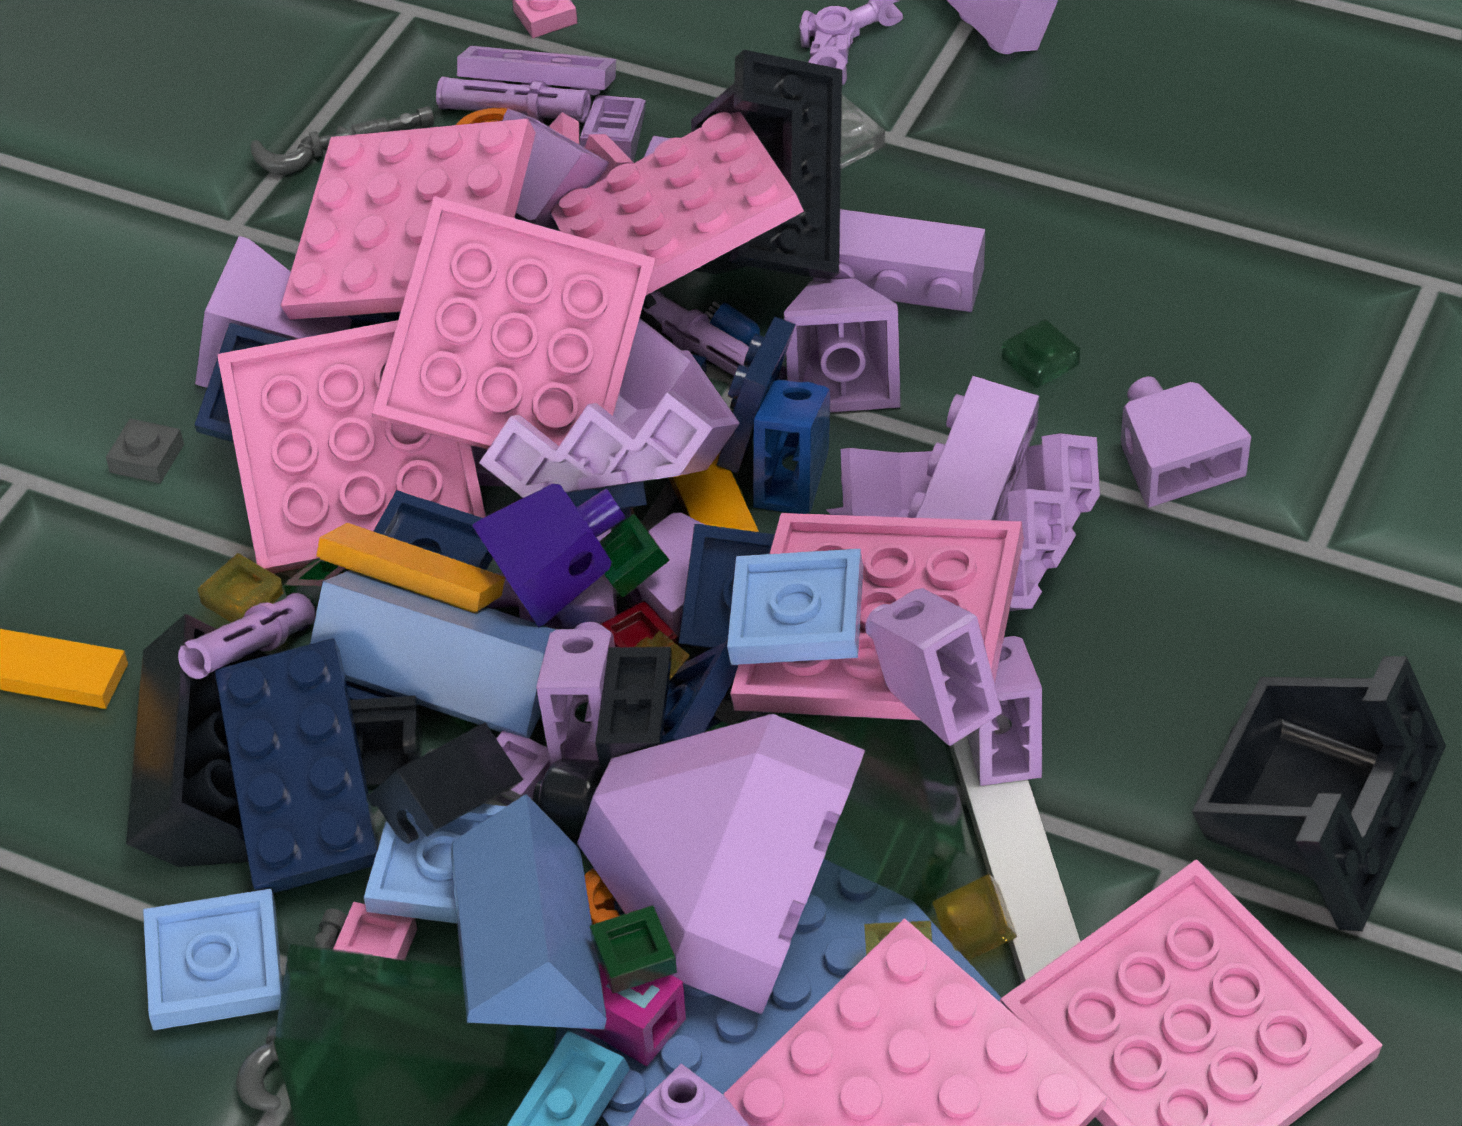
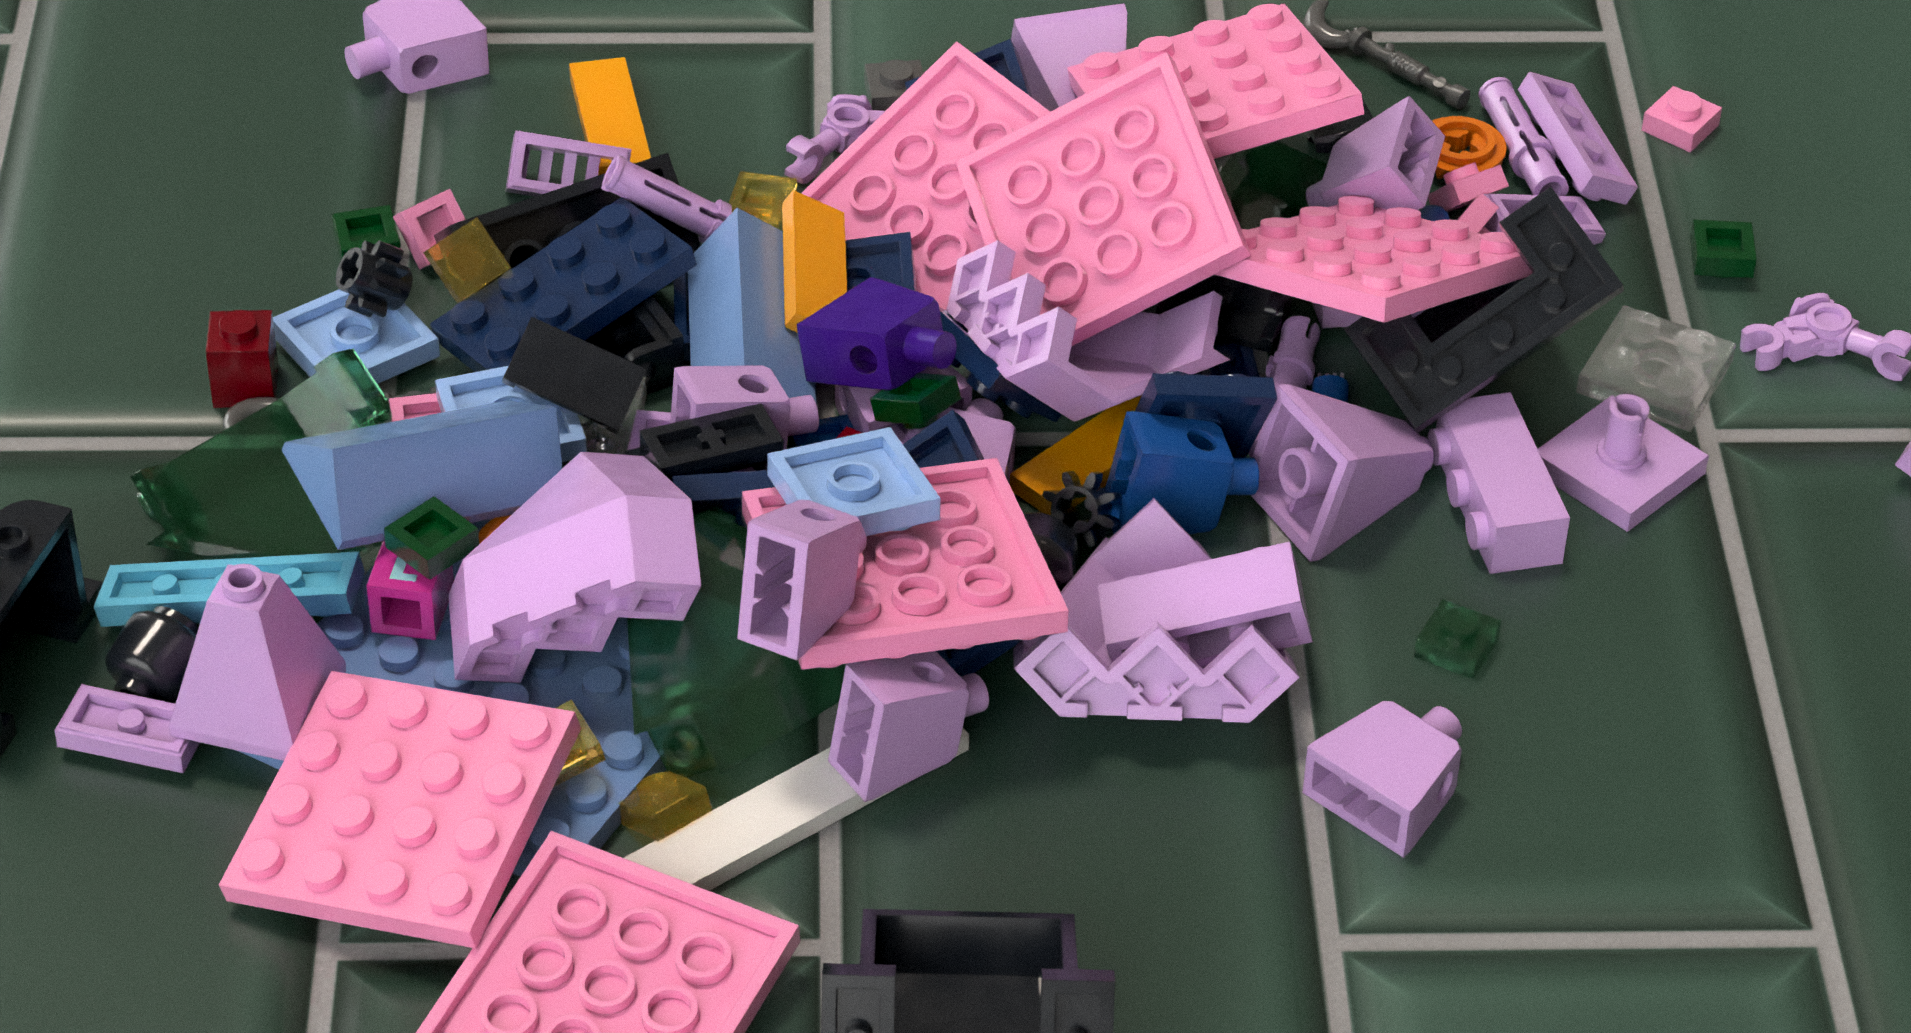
camera: 60 degrees right, 5 degrees down
(63, 739) = (519, 157): none -> lavender slope
(71, 904) = (362, 225): none -> dark green plate
(101, 845) = (426, 219): none -> bright pink plate
(182, 496) = (845, 121): none -> lavender piece
(185, 885) = (374, 278): none -> black gear
(192, 1057) = (241, 356): none -> dark red brick
(220, 815) = (467, 260): none -> clear yellow plate
(714, 43) = (1723, 248): none -> dark green plate
(782, 498) = (1096, 501): none -> black gear
(906, 183) = (1622, 461): none -> lavender tile

